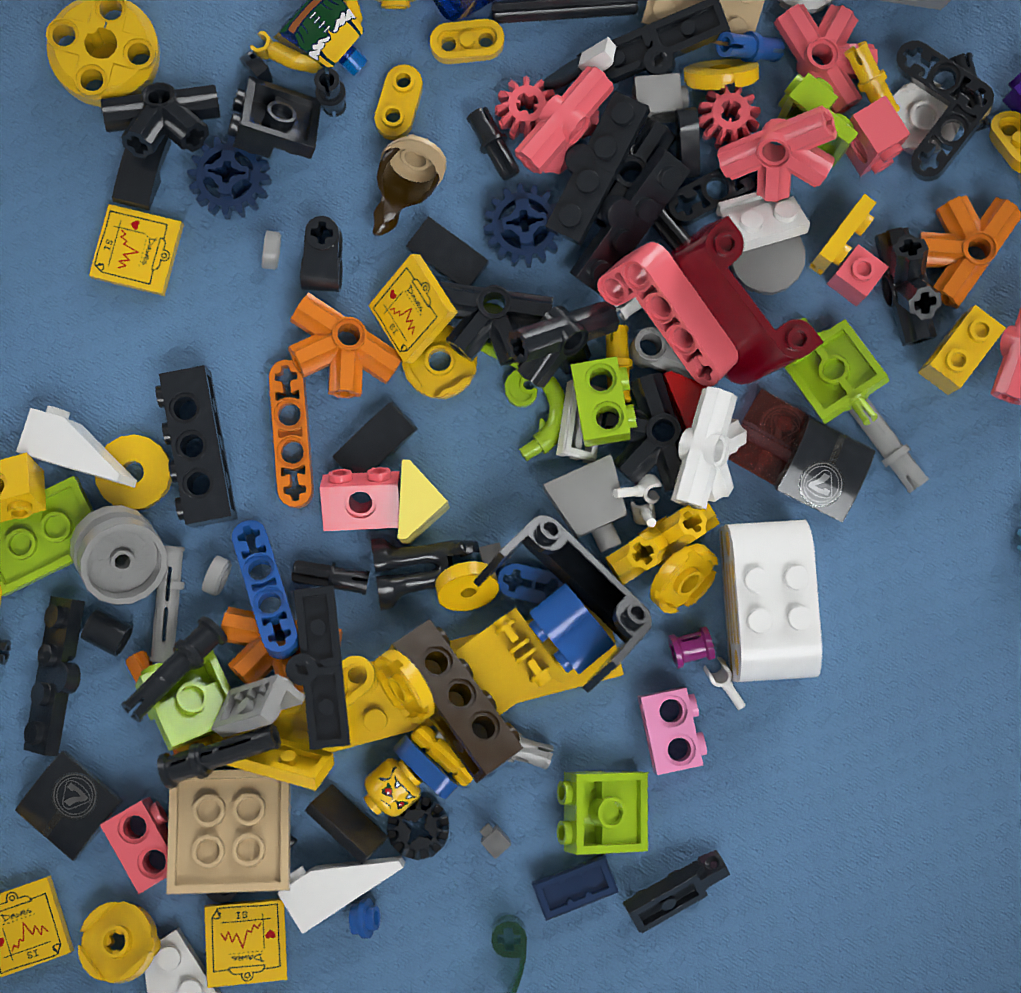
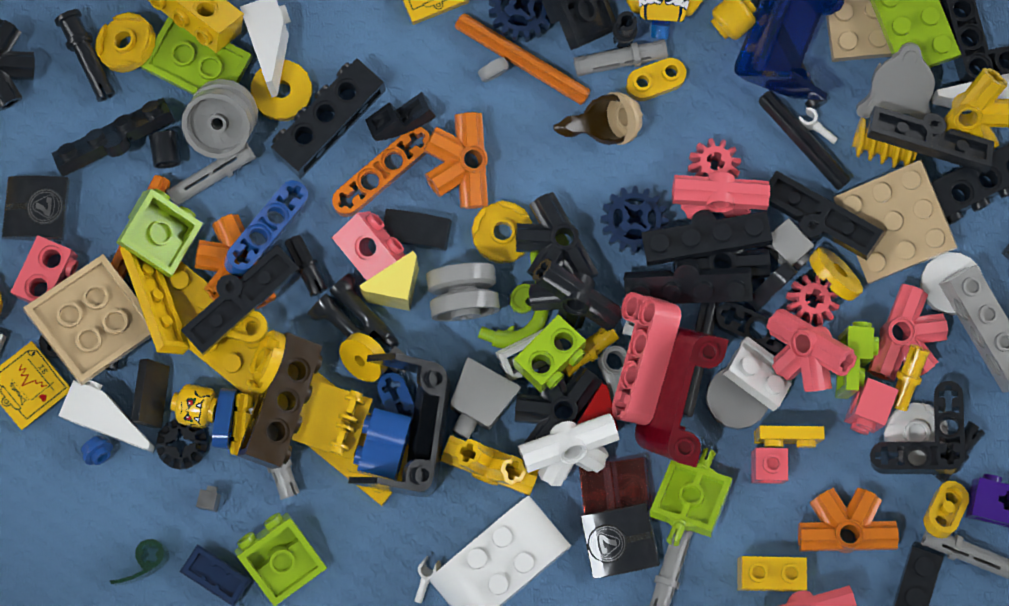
camera: 55 degrees right, 5 degrees down
(187, 655) = (185, 209): black pin -> none
(202, 759) = (125, 267): black pin -> none
(216, 575) = (252, 192): light grey tile -> none
(251, 386) = (393, 122): none -> black slope
(256, 705) = (185, 275): light grey bracket -> none
(280, 214) = (522, 59): none -> orange axle
(322, 262) = (510, 108): black piece -> none
(358, 106) = (622, 57): none -> light grey pin
(412, 308) = (521, 187): yellow tile -> none
(447, 253) = (578, 185): black tile -> none
(466, 37) = (733, 92): yellow plate -> none
(472, 440) = (462, 292): none -> light grey wheel
(493, 142) = (675, 159): black axle -> none
(599, 55) = (779, 183): piece -> none
(642, 489) = (522, 426): white hand -> none
(644, 514) = (500, 441): white hand -> none
(661, 732) = (360, 557): bright pink brick -> none
(684, 578) = (489, 494): yellow tile -> none
(691, 647) = (432, 537): magenta bush -> none
(750, 46) = (869, 280): blue pin -> none
(907, 285) = (788, 505): black piece -> none

